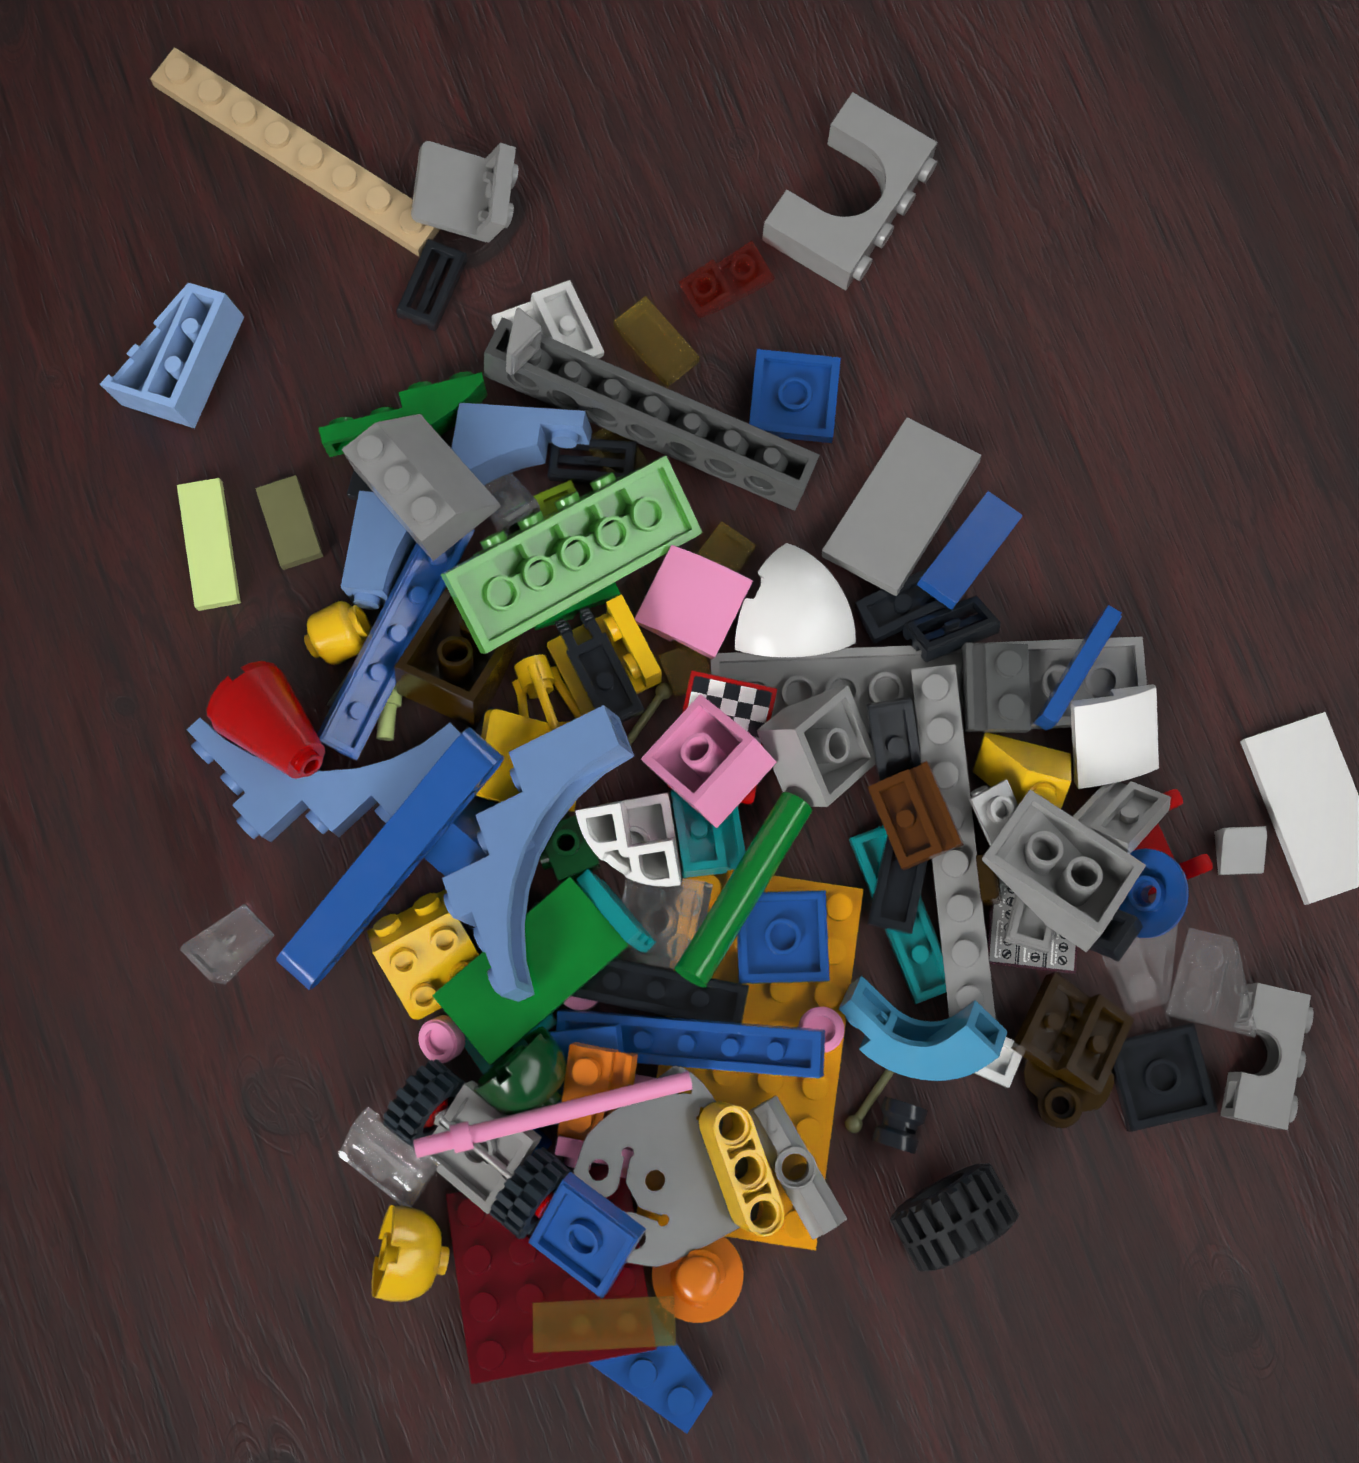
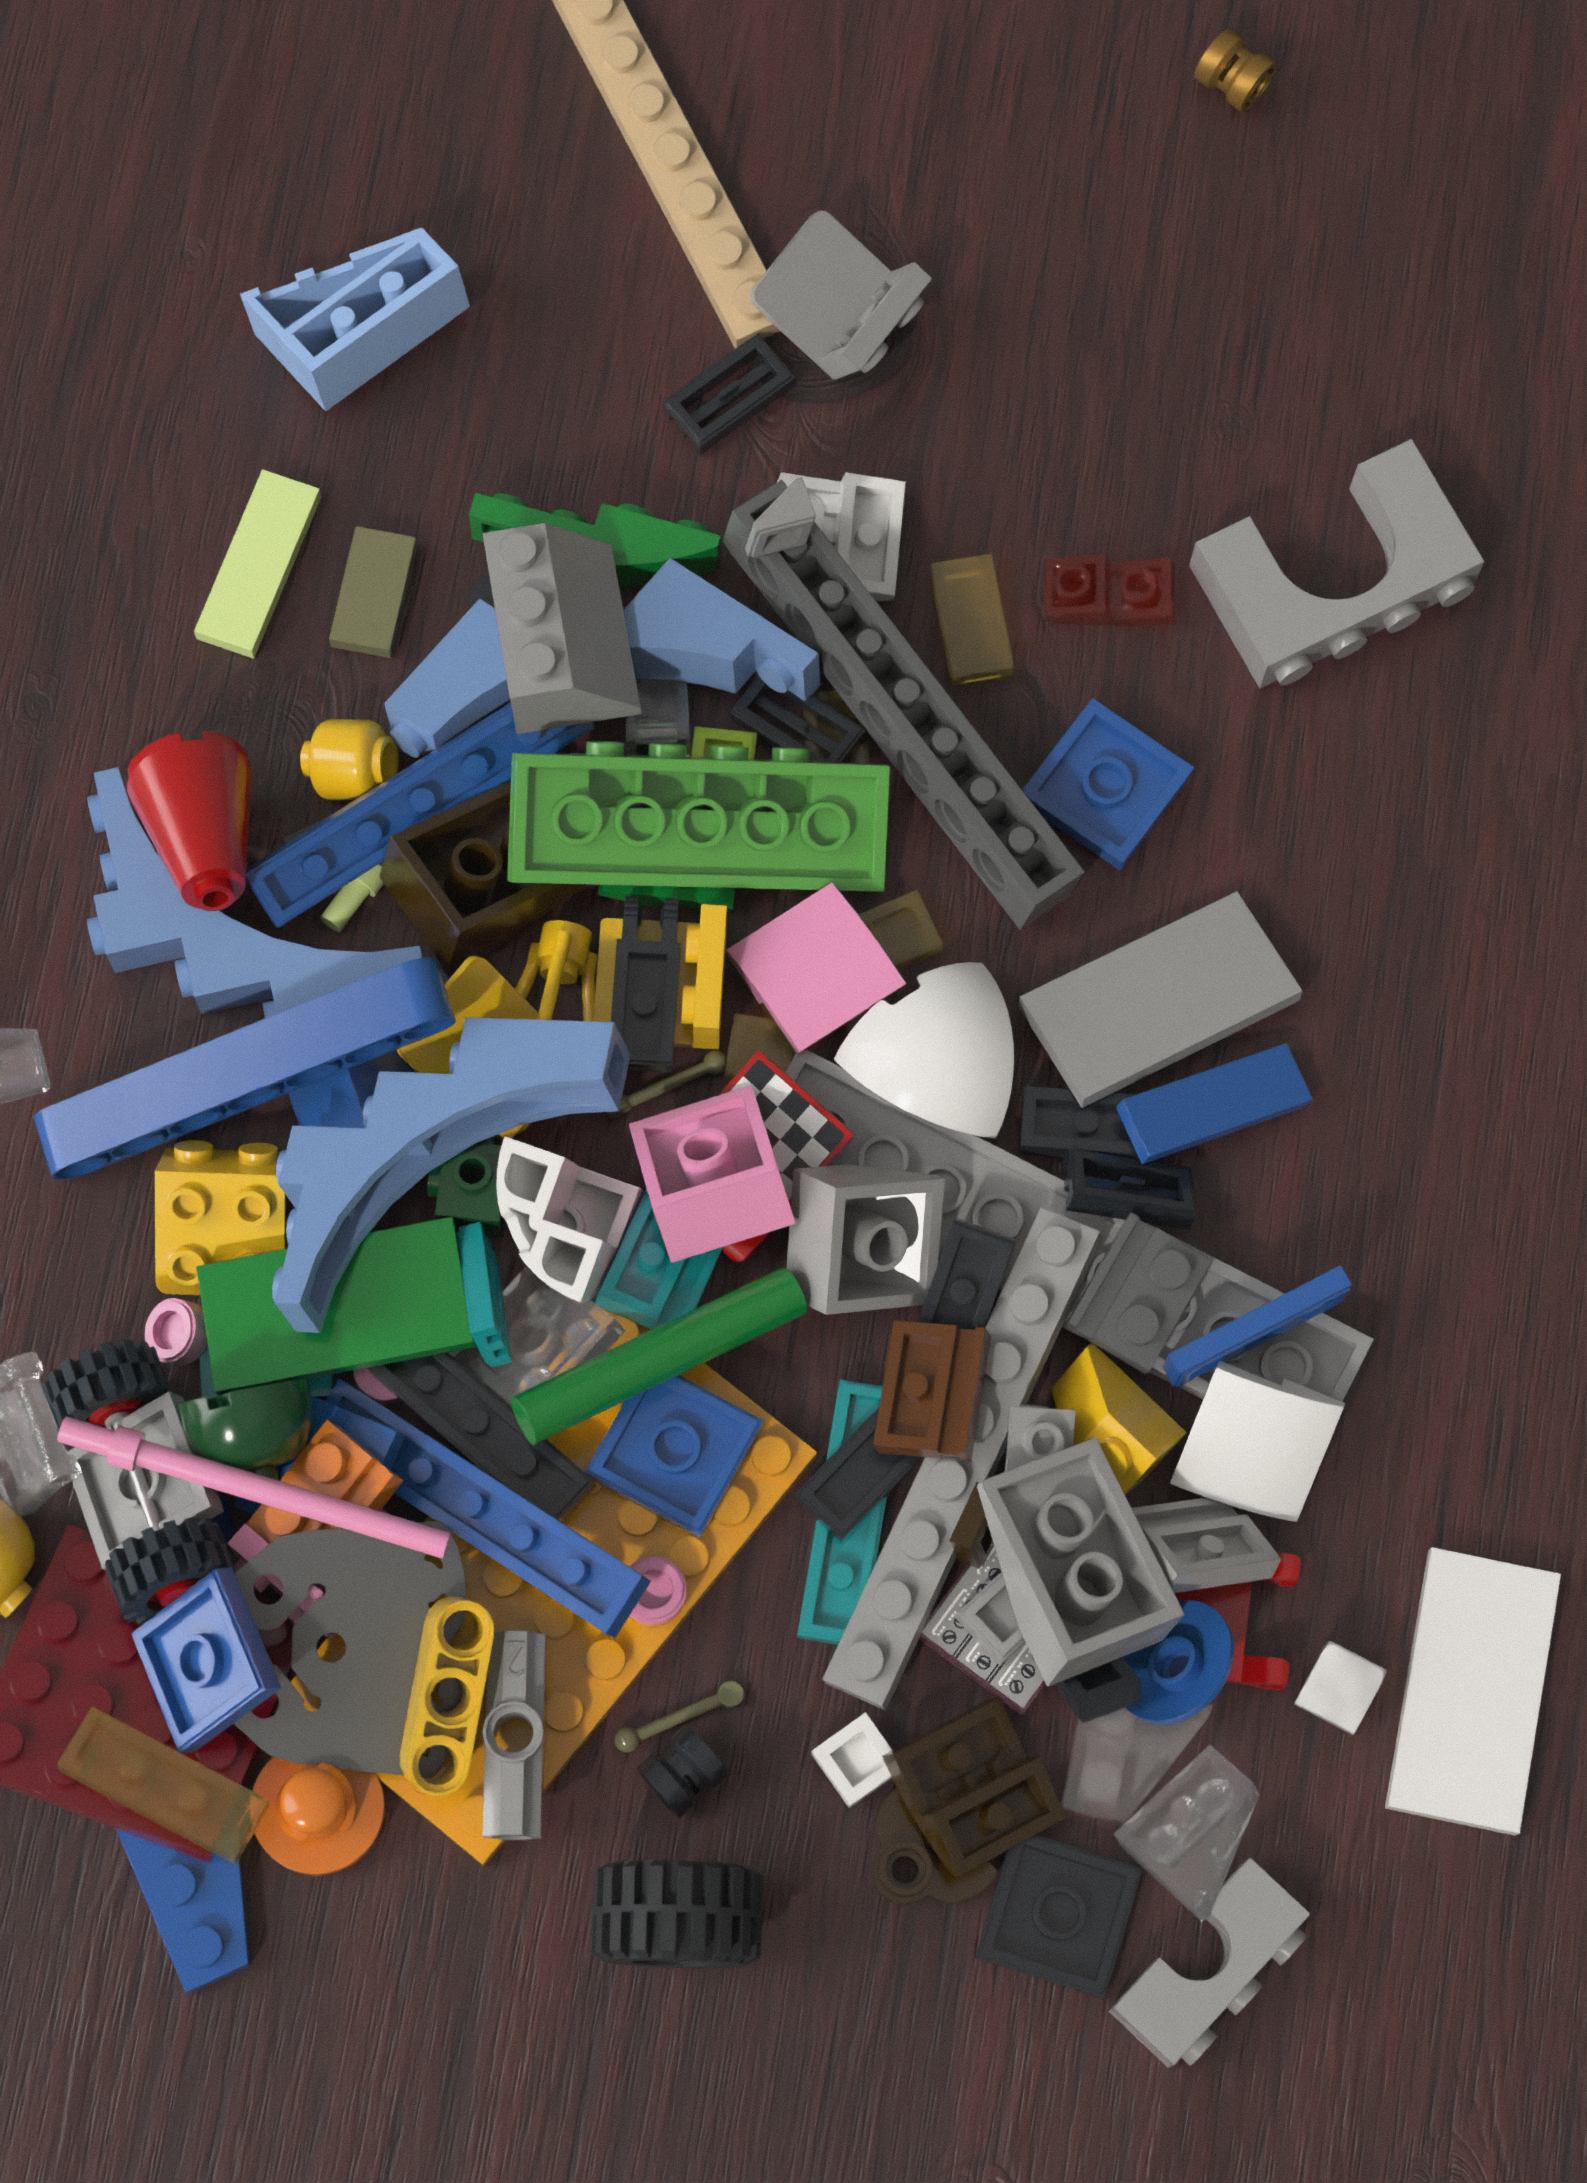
camera: 30 degrees right, 5 degrees down
(918, 1047) = (761, 1682): dark azure arch -> none

